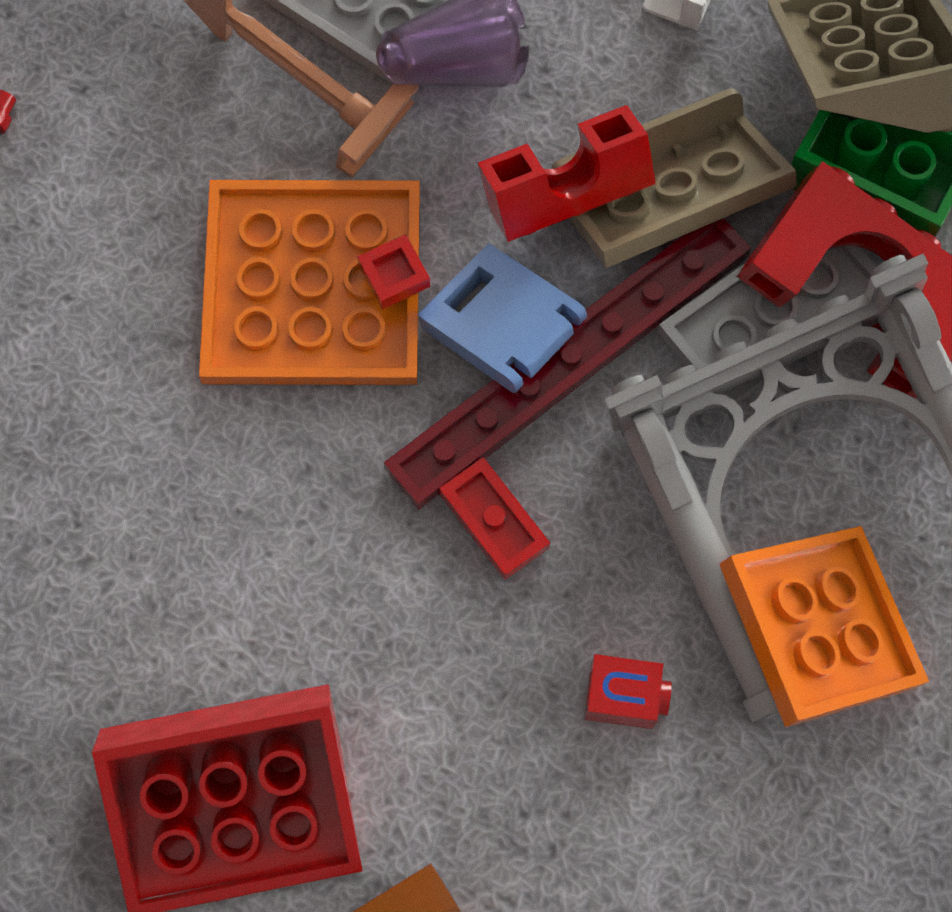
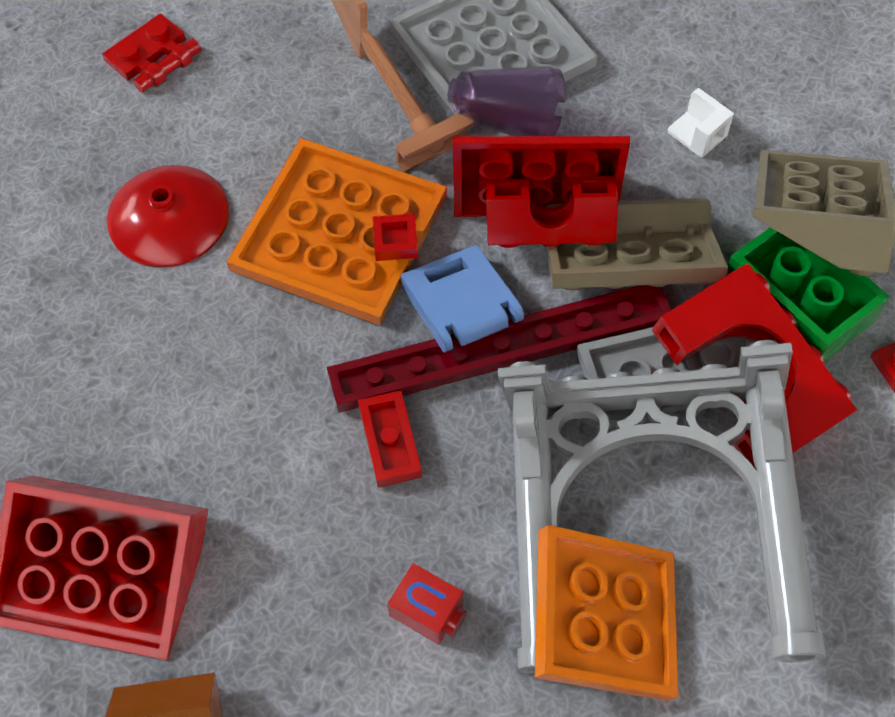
camera: 25 degrees right, 10 degrees down
(93, 368) = (168, 230): none -> red dish
(541, 118) = (544, 160): none -> red slope

